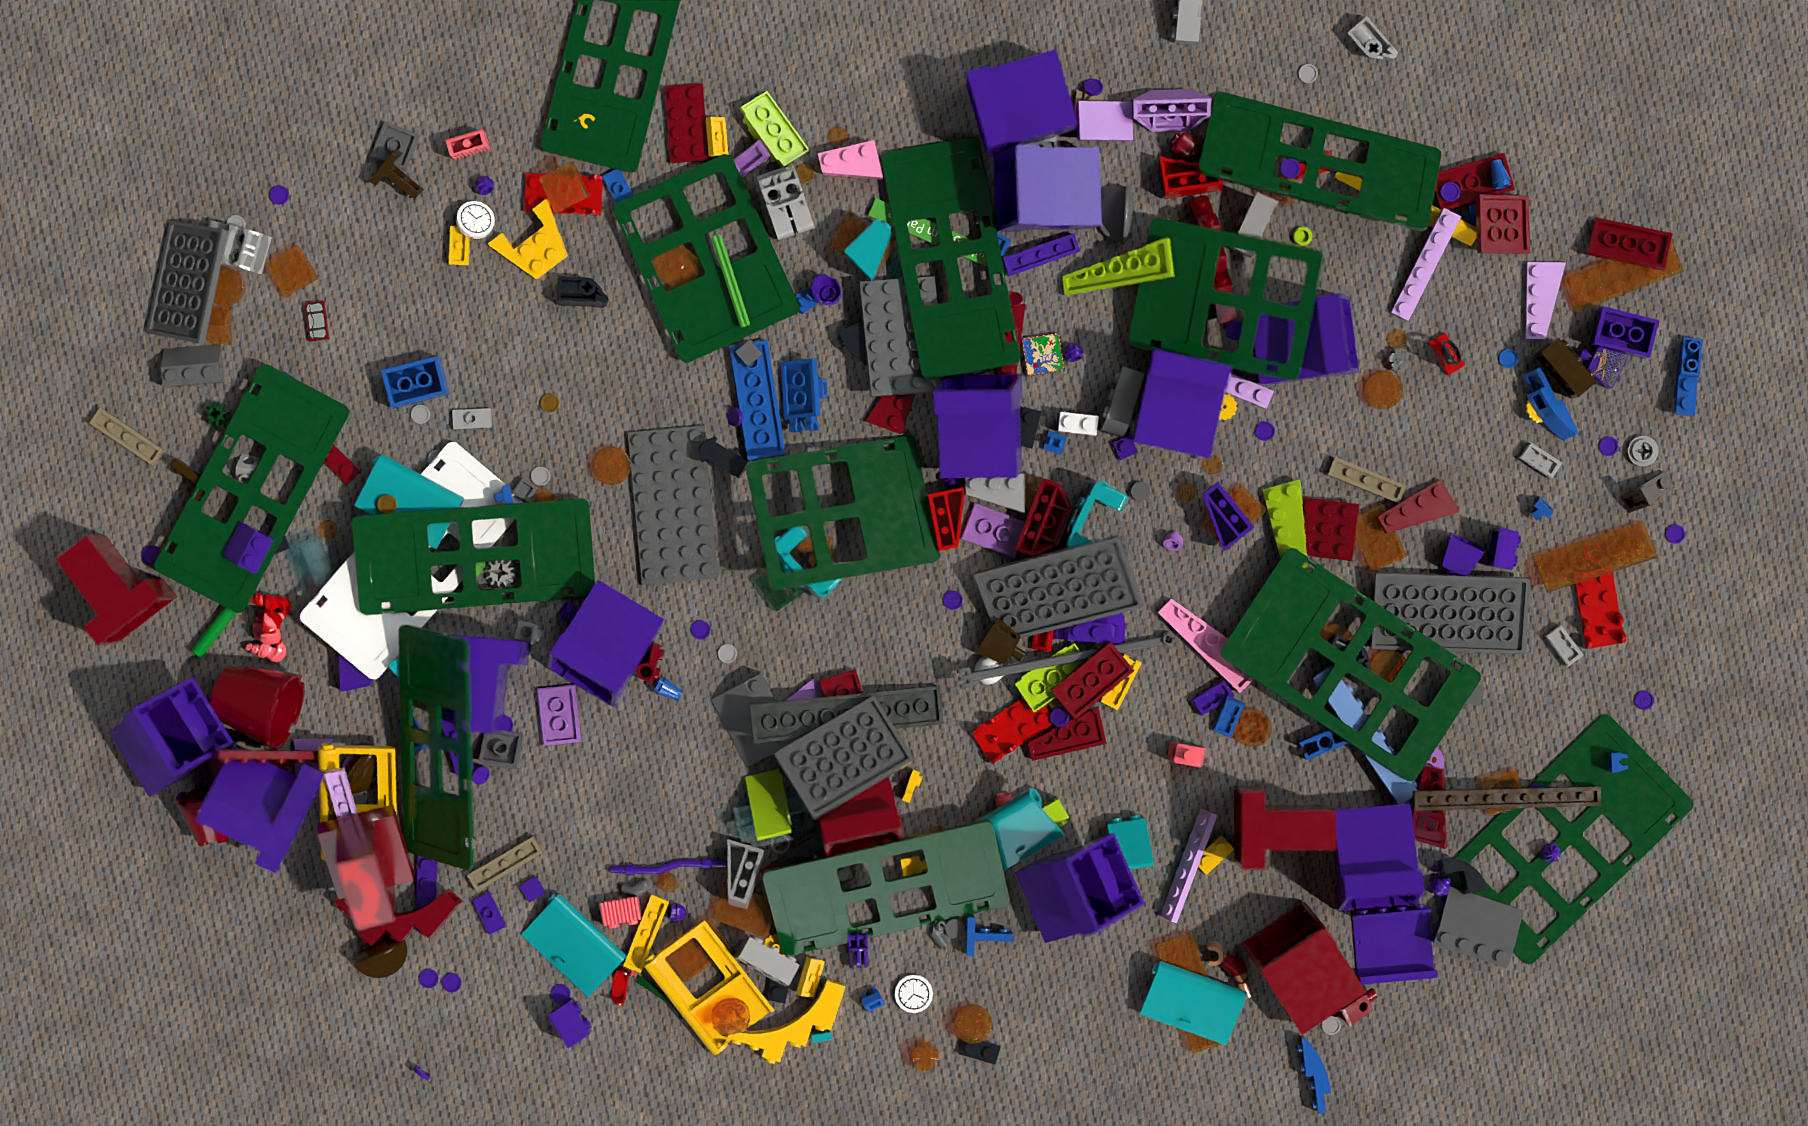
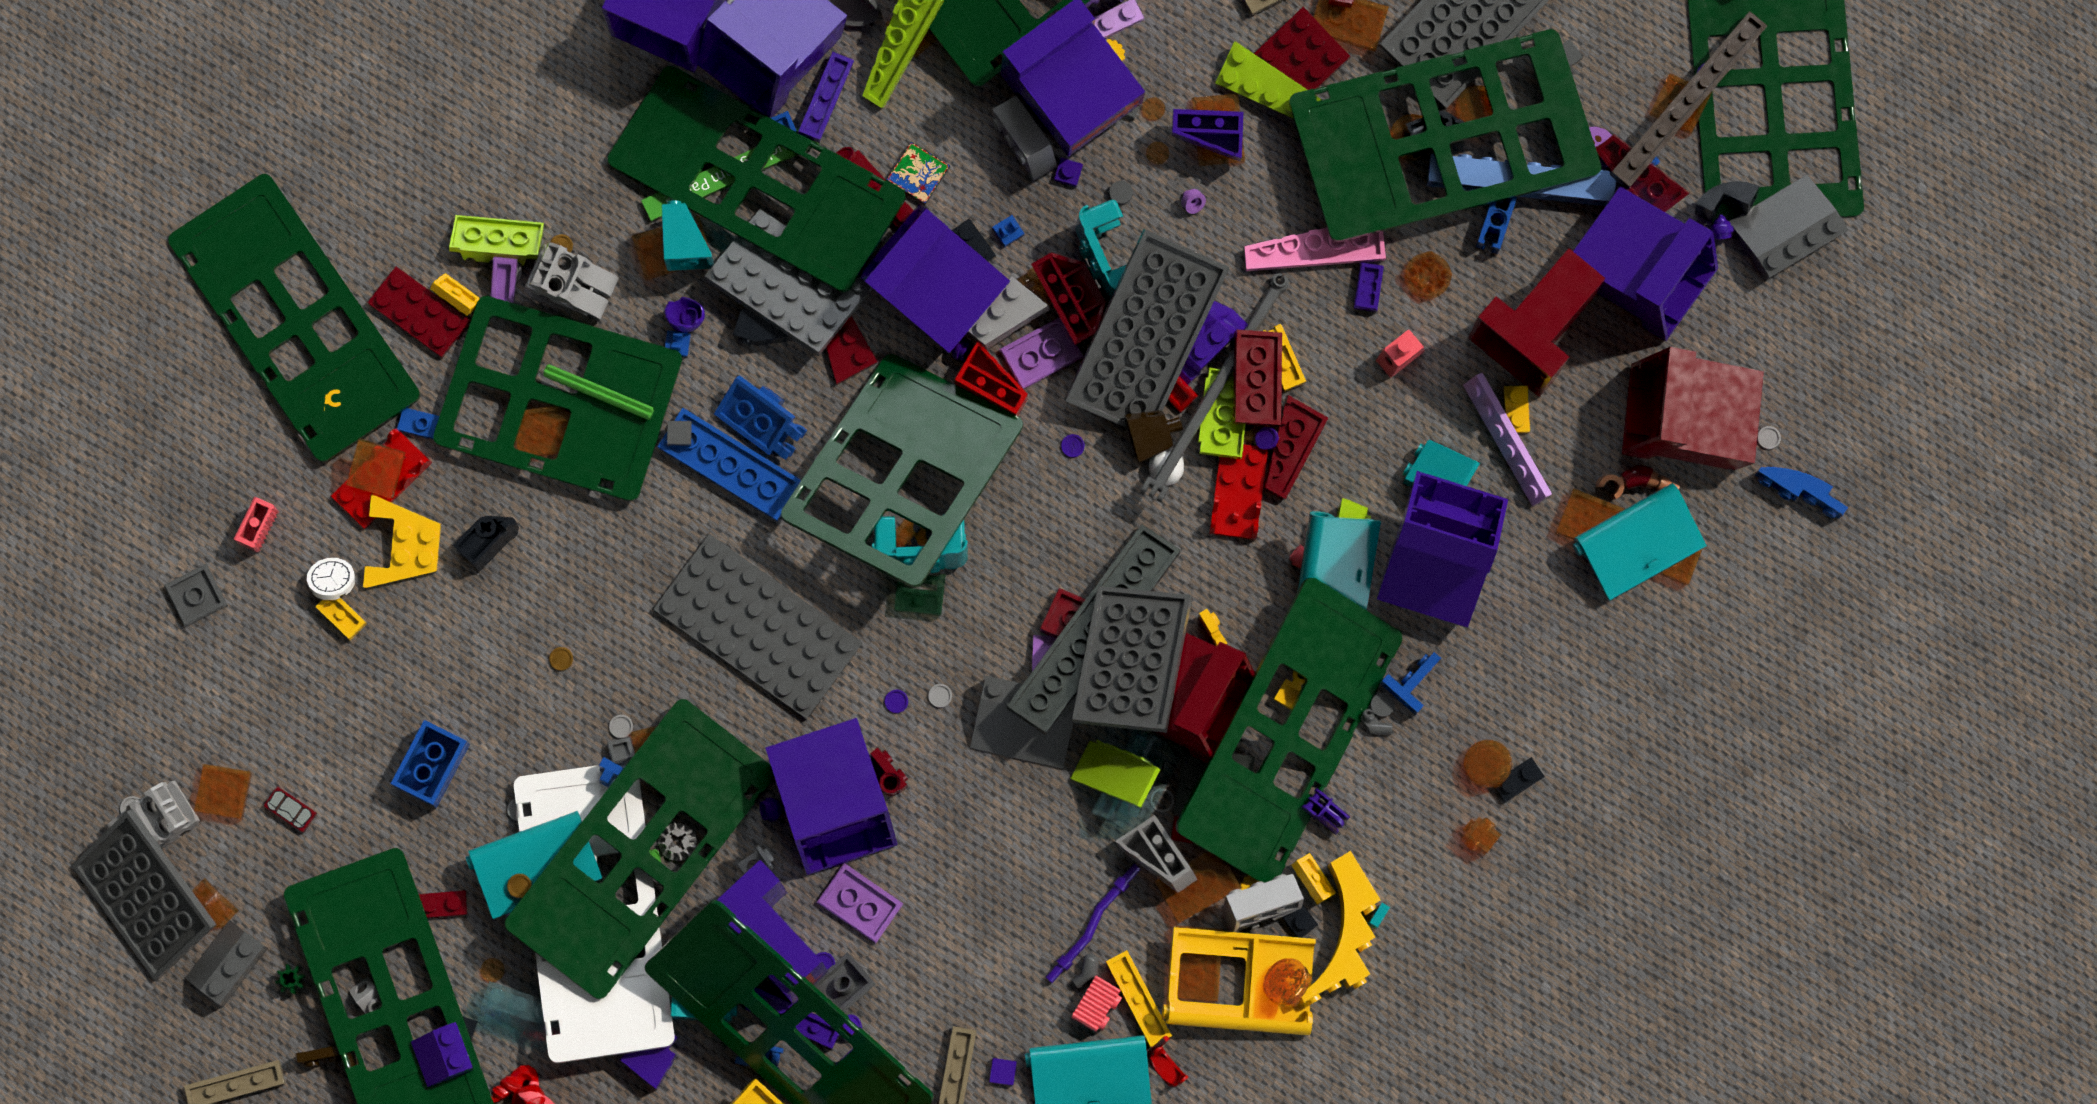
camera: 50 degrees left, 10 degrees down
(229, 287) = (187, 861): clear orange tile -> none
(279, 195) = (142, 742): dark purple piece -> none
(396, 176) = (225, 616): dark brown bracket -> none
(420, 414) = (463, 788): light grey piece -> none
(472, 418) = (511, 743): light grey plate -> none
(484, 185) = (307, 543): dark purple plate -> none
(611, 465) = (670, 650): clear orange tile -> none
(656, 991) = (1208, 1036): dark green piece -> none
(667, 688) = (924, 779): blue cone -> none
(668, 882) = (1108, 935): clear orange plate -> none
(676, 912) = (1142, 952): dark purple plate -> none
(722, 457) = (754, 540): black piece -> none
(735, 416) = (726, 498): dark purple piece -> none
(838, 136) = (554, 187): clear orange piece -> none
(852, 161) = (589, 192): bright pink wedge -> none
(873, 1001) = (1386, 839): blue tile -> none
(913, 993) = (1411, 796): white tile -> none
(1073, 352) = (941, 144): dark purple plate -> none
(1078, 423) = (1009, 194): white brick -> none
(1228, 716) = (1399, 287): blue plate -> none
(1265, 431) = (1163, 37): dark purple piece -> none
(1358, 1008) = (1772, 397): dark red torso -> none
(1393, 944) = (1739, 316): dark purple panel -> none
(1550, 852) = (1773, 106): dark purple plate -> none

